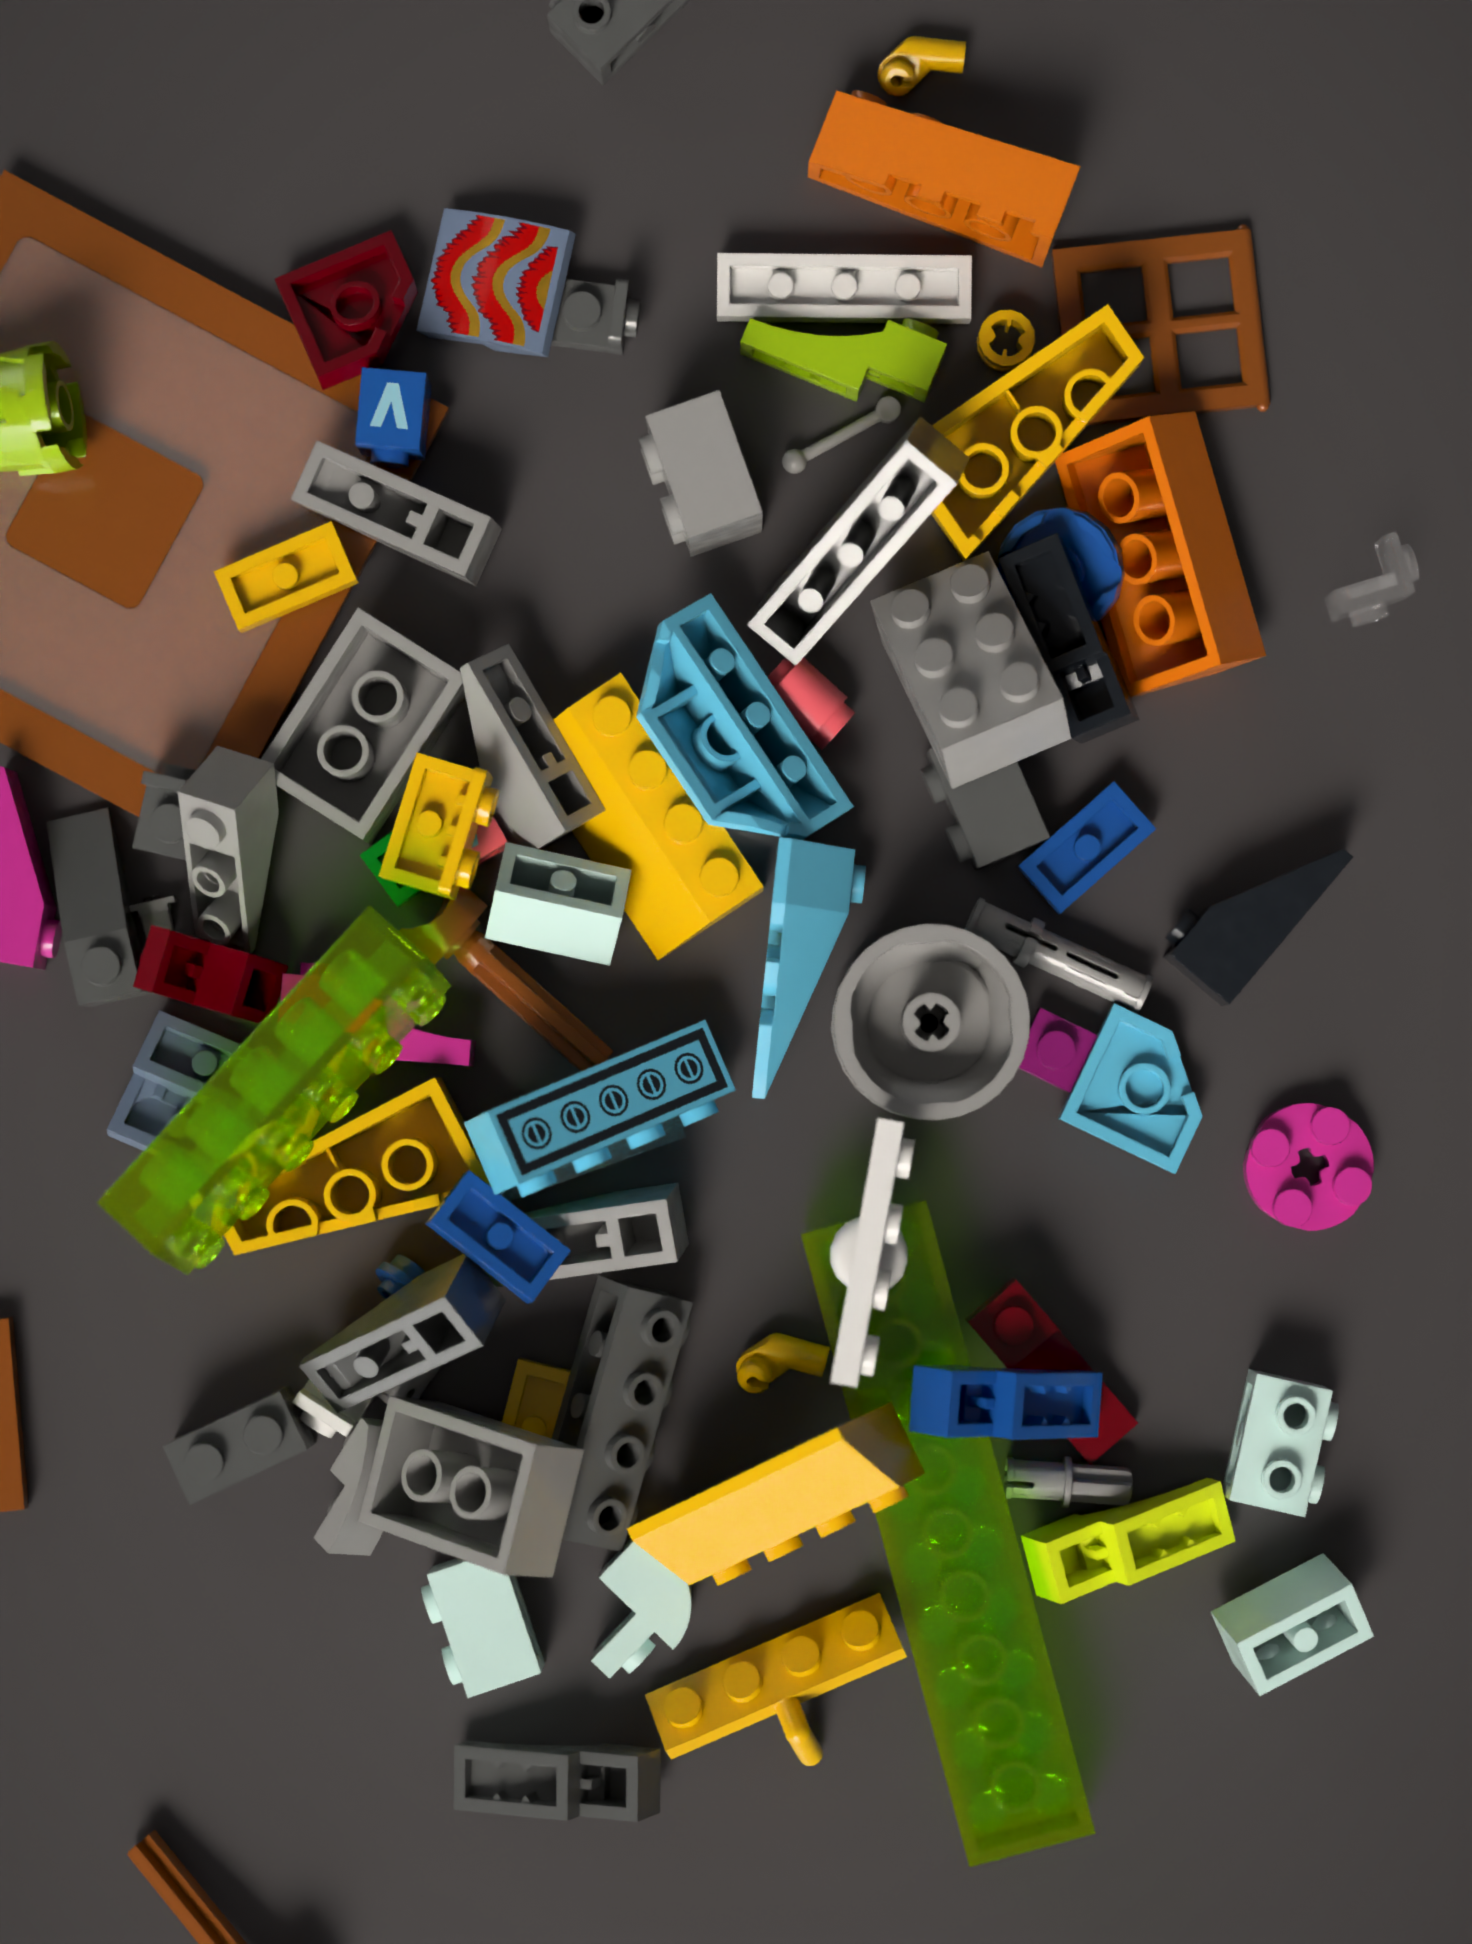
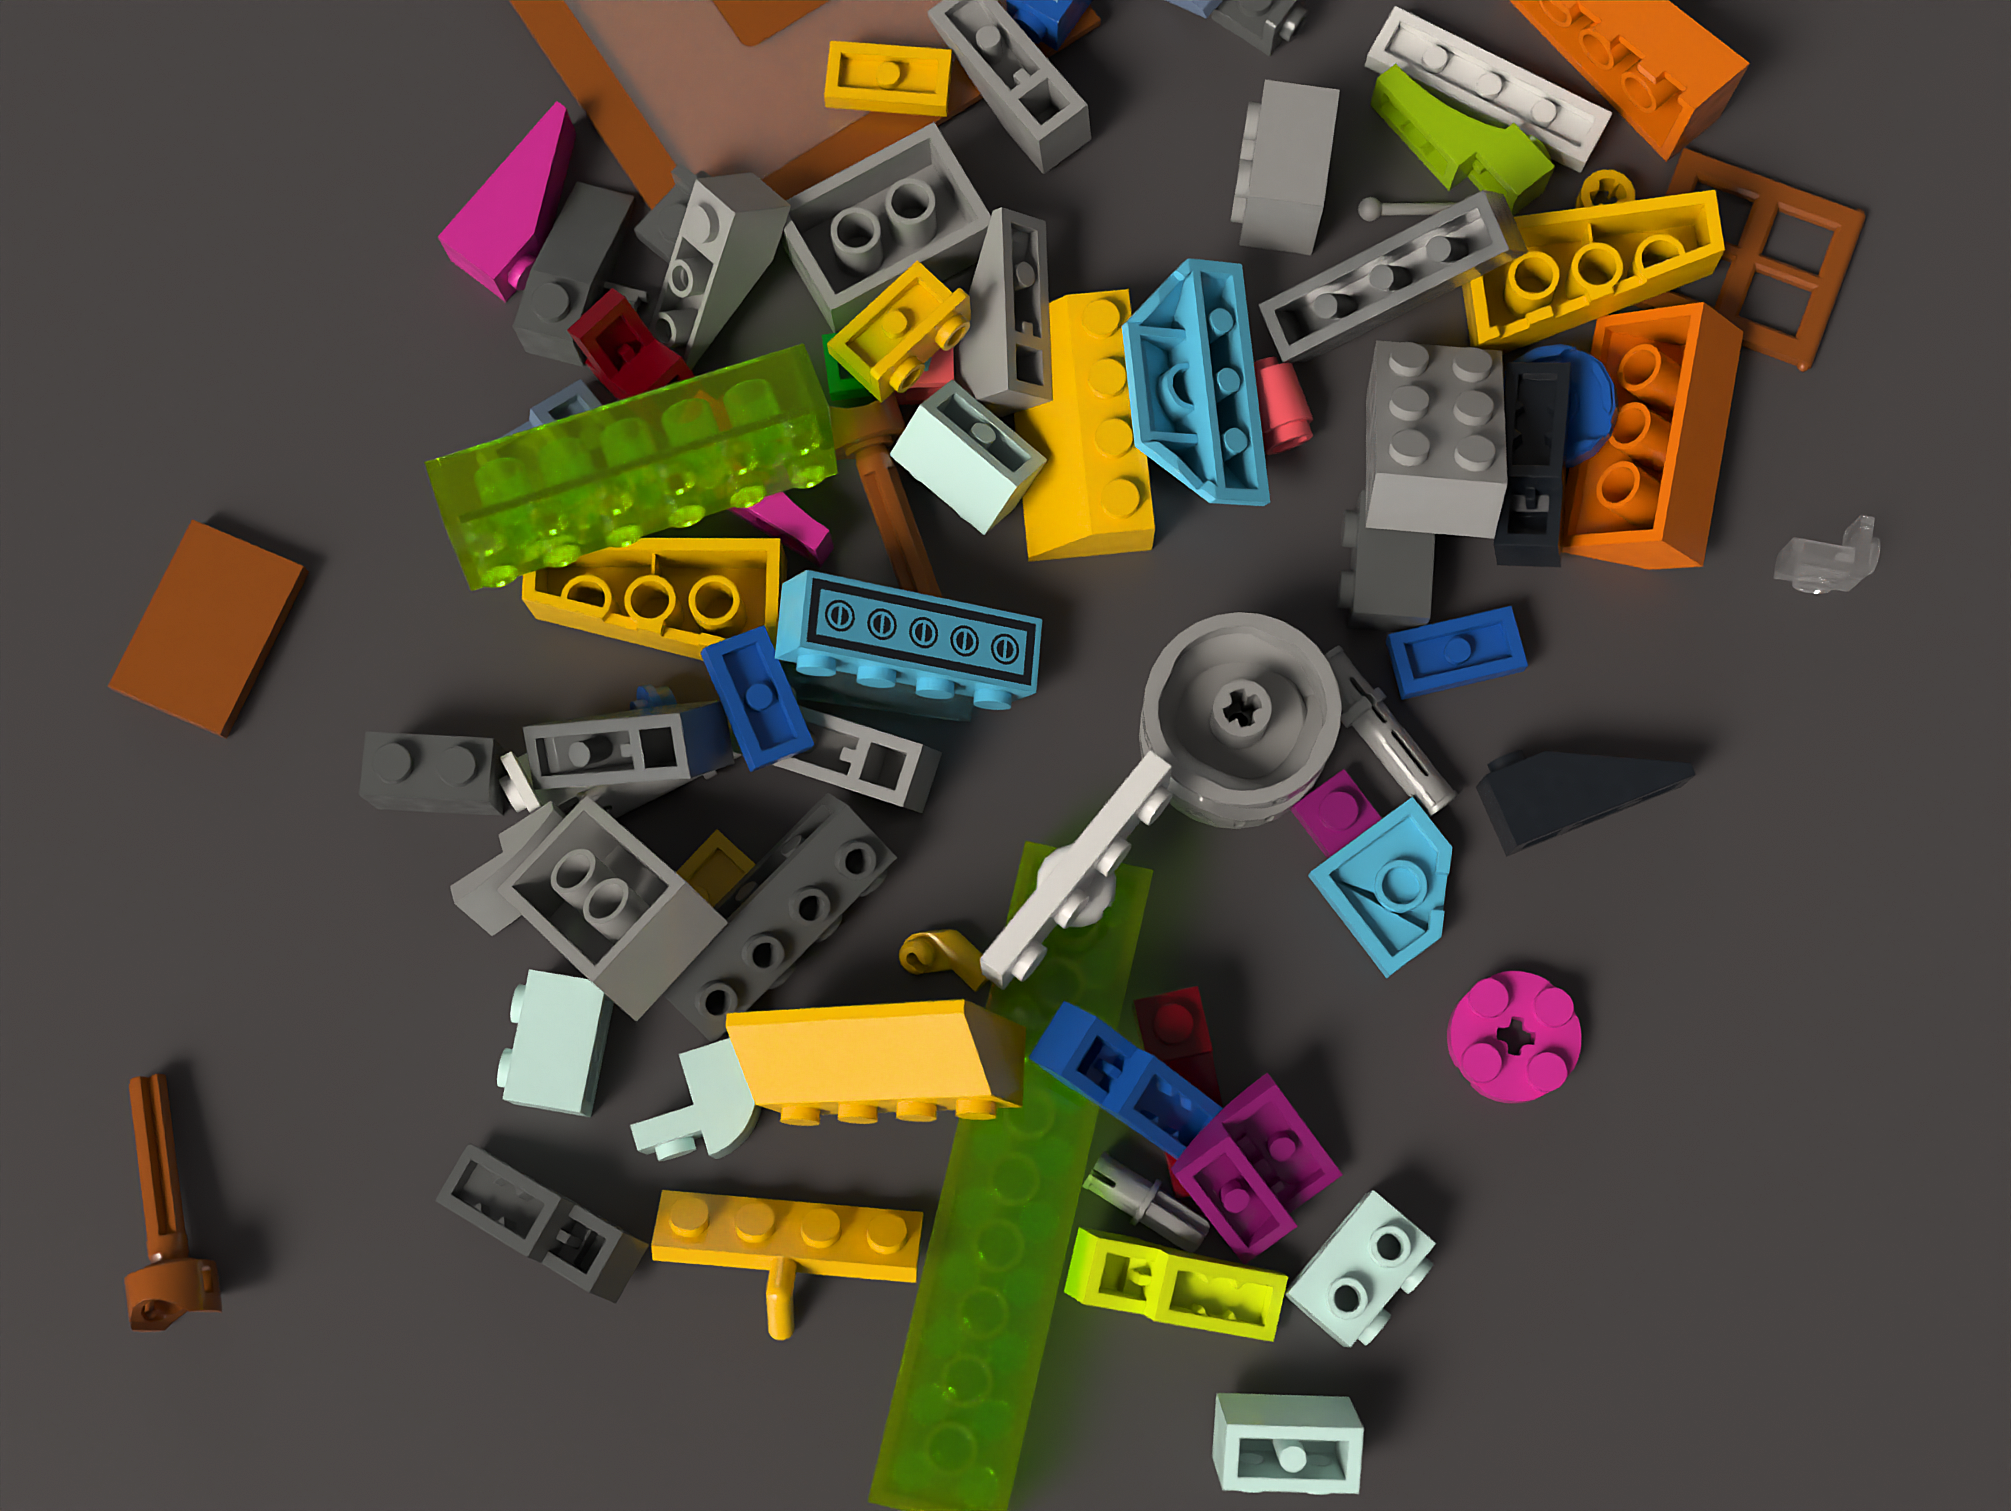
camera: 25 degrees right, 10 degrees down
(807, 915) = (1185, 573): medium azure wedge -> none
(1146, 1406) = (1254, 1168): none -> magenta slope

